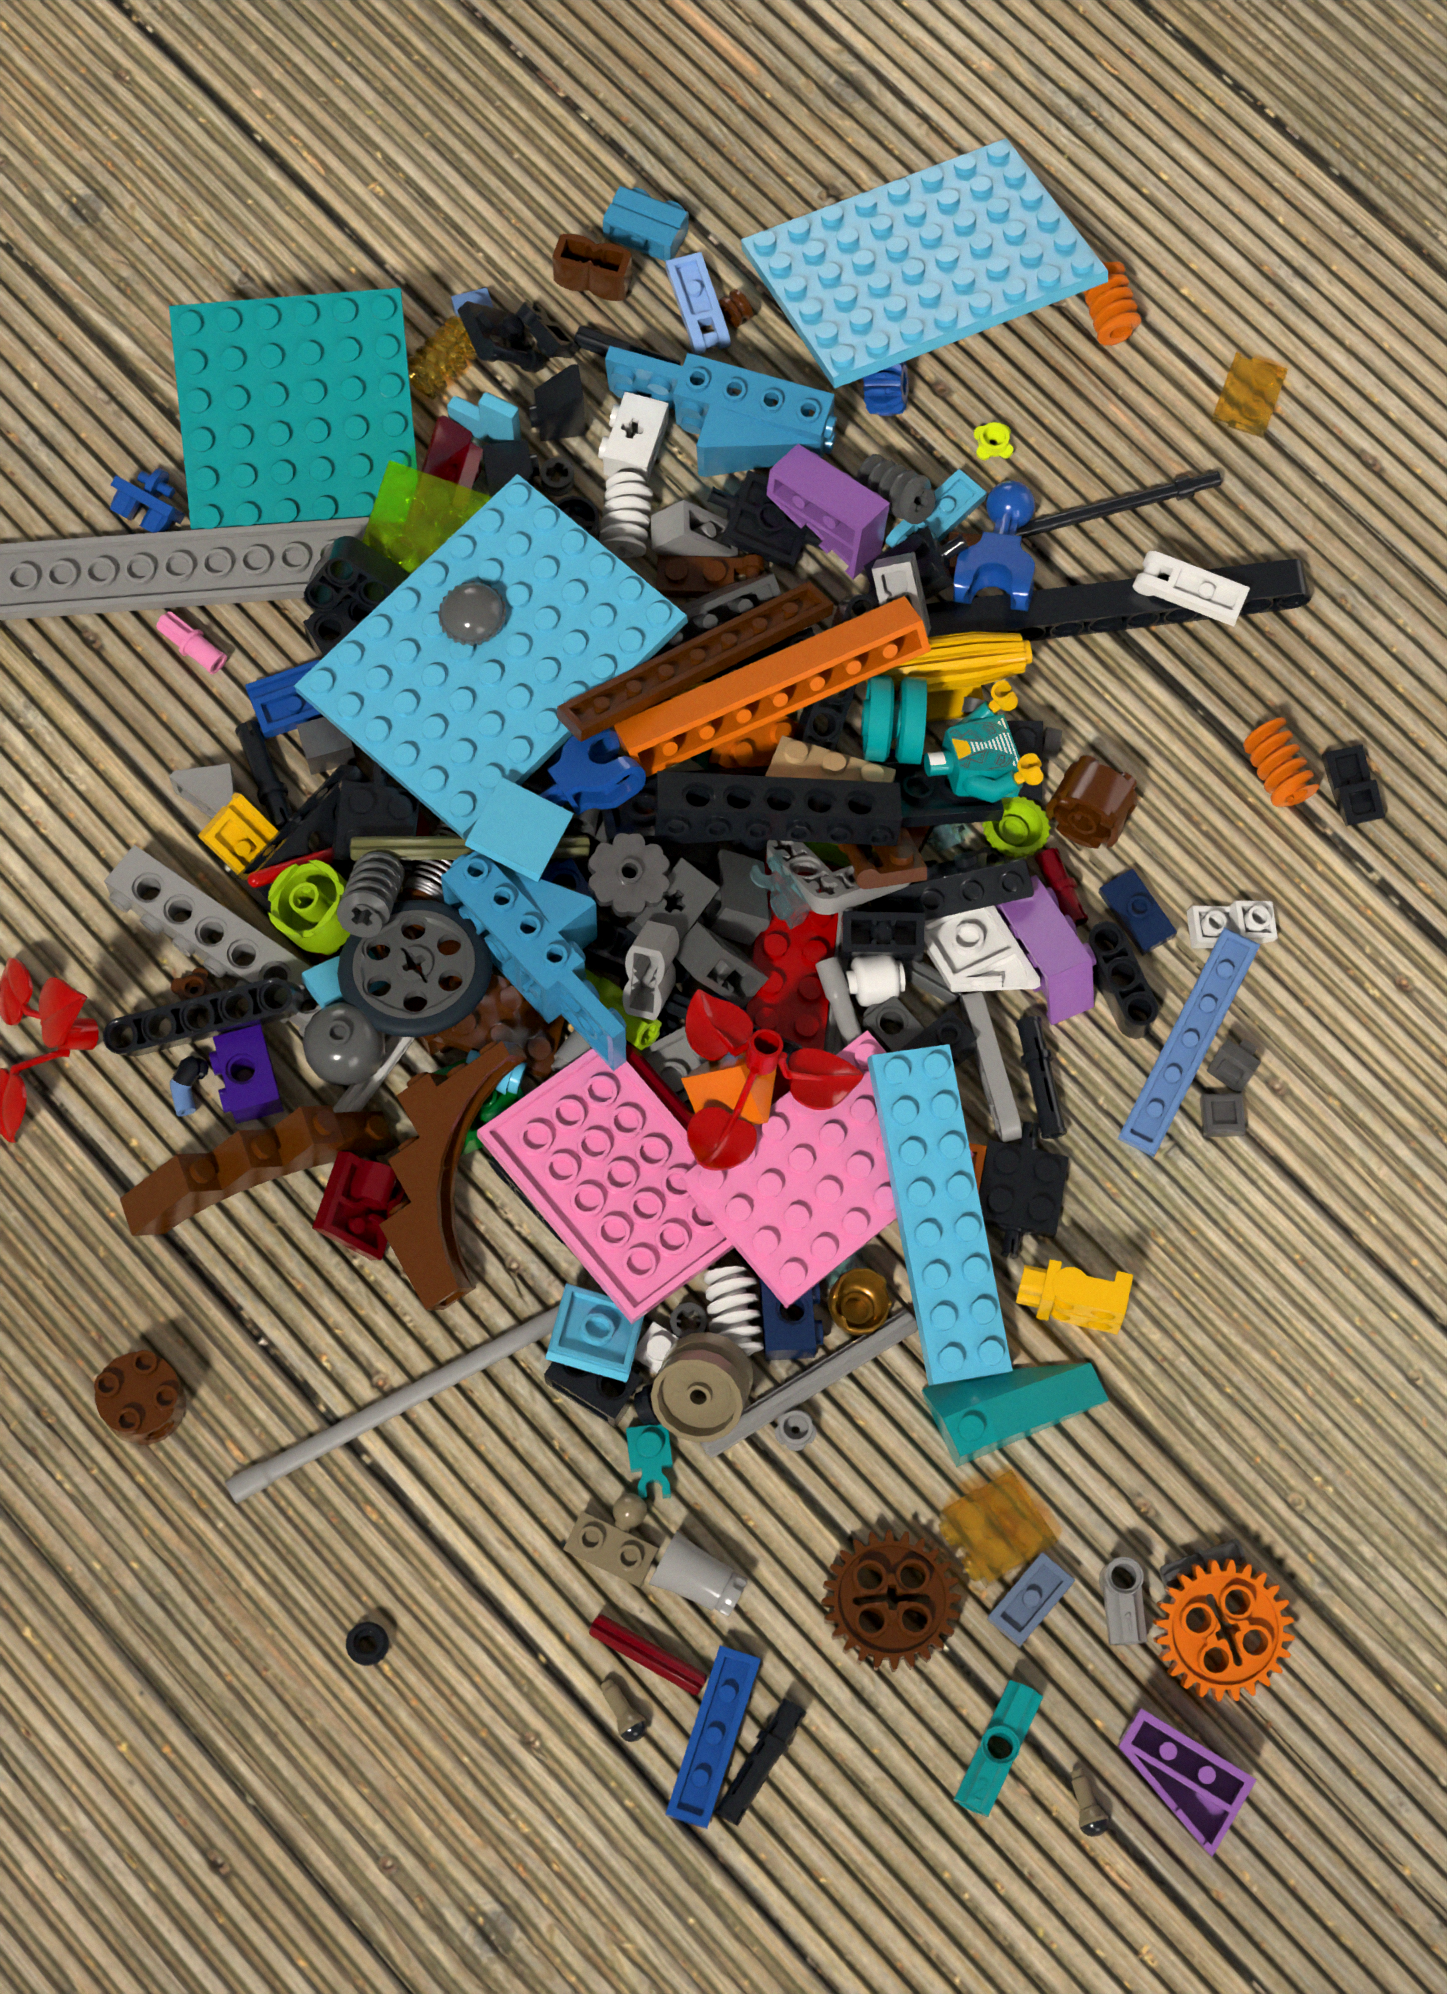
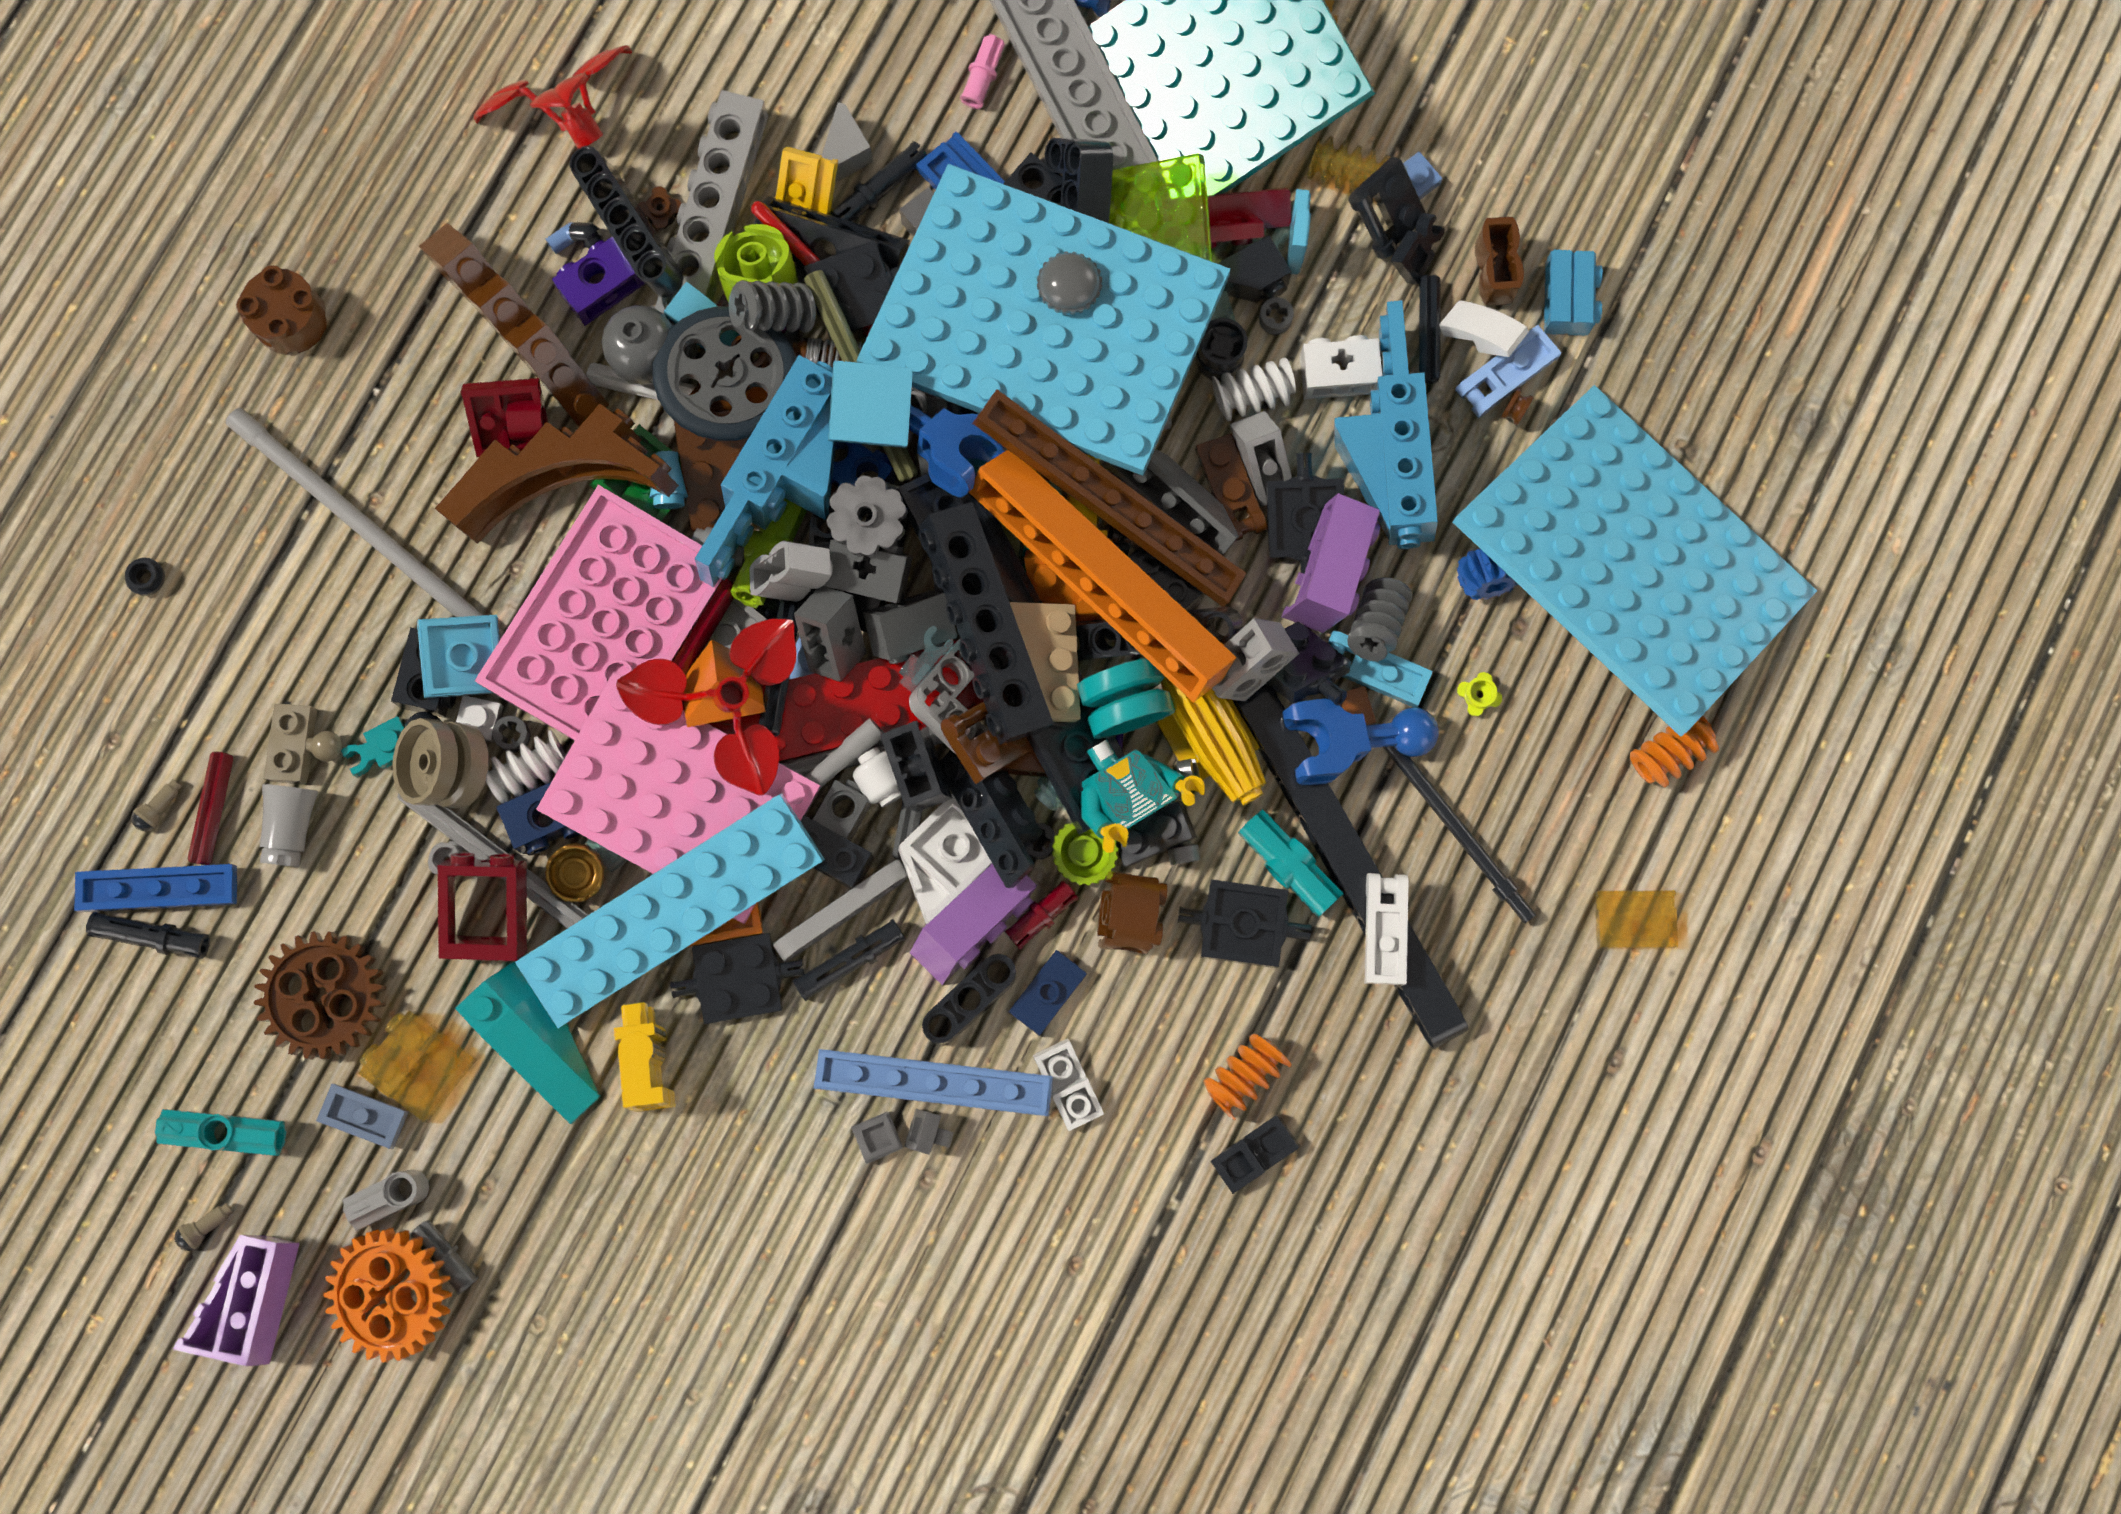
camera: 70 degrees right, 10 degrees up
(559, 406) = (1341, 289): black slope -> none
(655, 298) = (1488, 328): none -> white slope
(902, 1418) = (483, 947): none -> dark red window
(1093, 655) = (1290, 863): none -> teal piece
(1135, 715) = (1244, 923): none -> black plate

